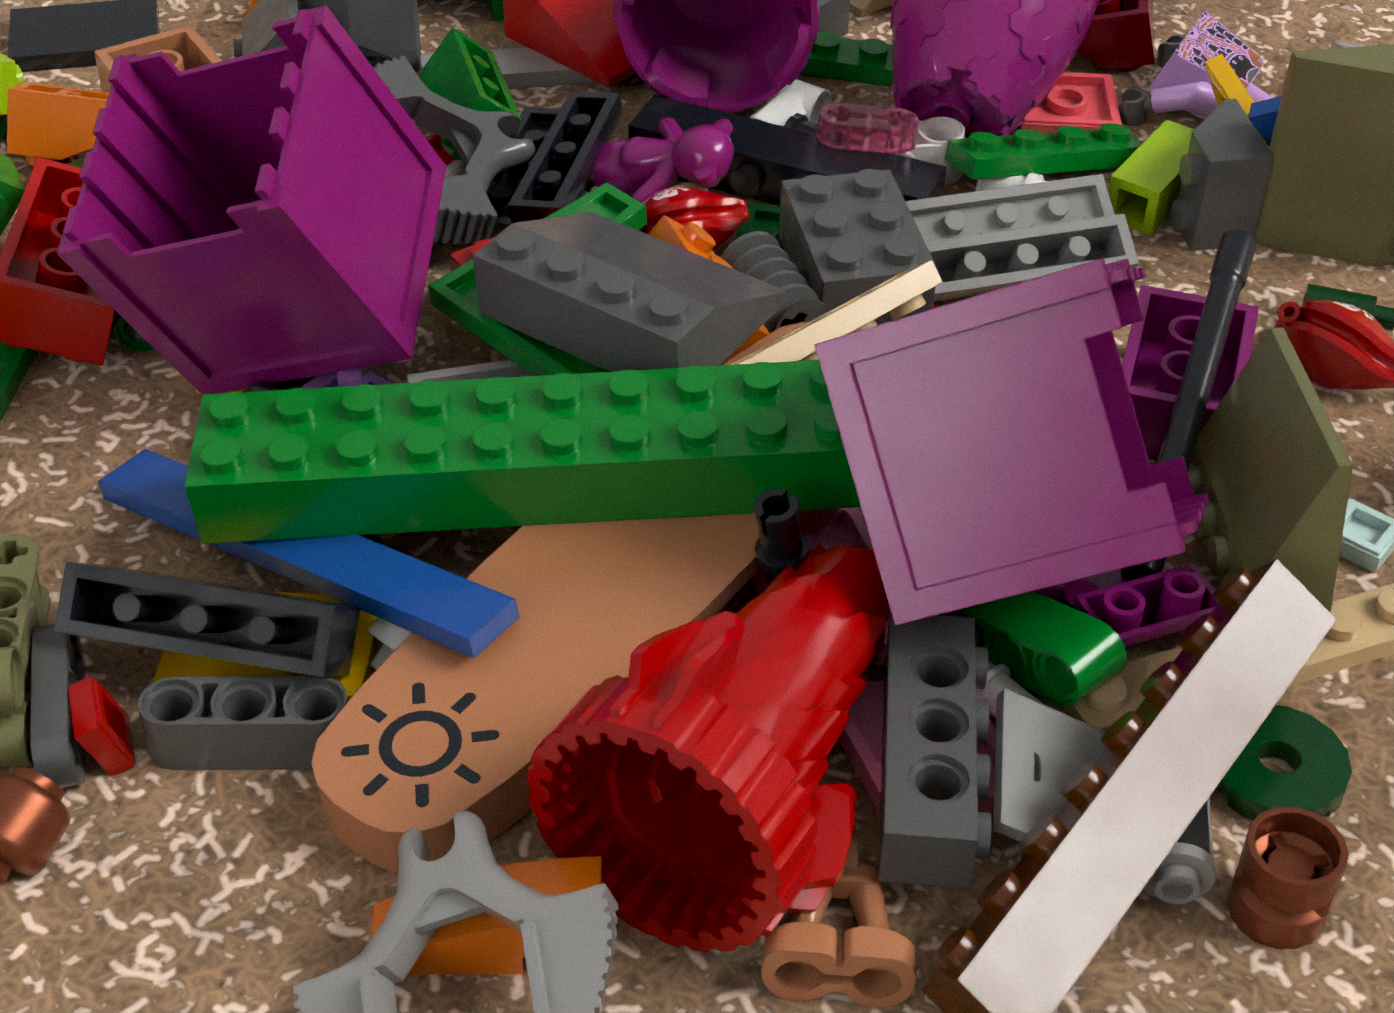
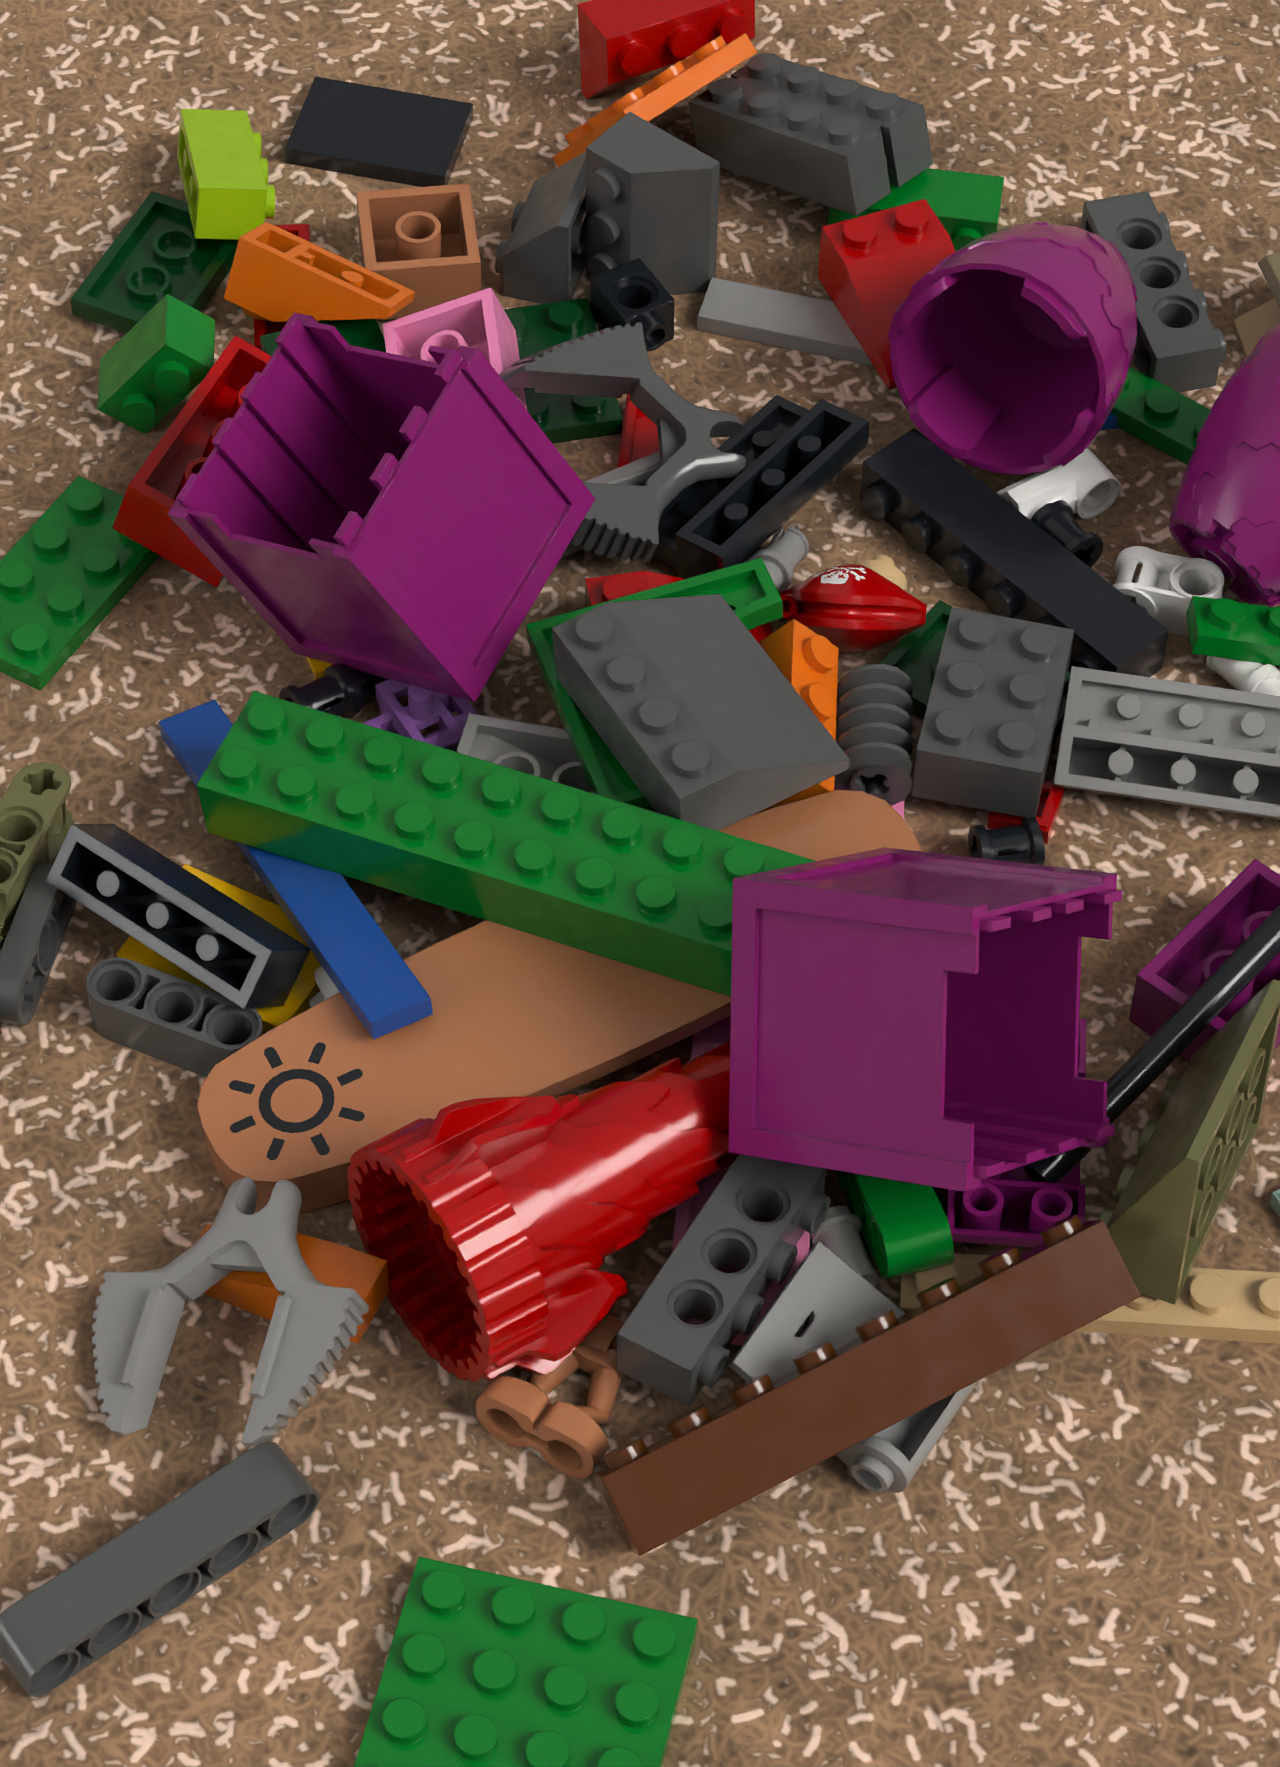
camera: 25 degrees right, 10 degrees up
(101, 726) = (57, 979): red tile -> none
(467, 76) = (724, 351): green brick -> none
(652, 164) = (851, 525): magenta piece -> none
(780, 534) = (692, 1026): black pin -> none
(868, 128) = (1108, 554): clear pink beam -> none
(896, 295) = (893, 812): tan plate -> none
(1287, 877) = (964, 1506): copper wheel -> none
(1310, 748) = (1047, 1439): dark green tile -> none

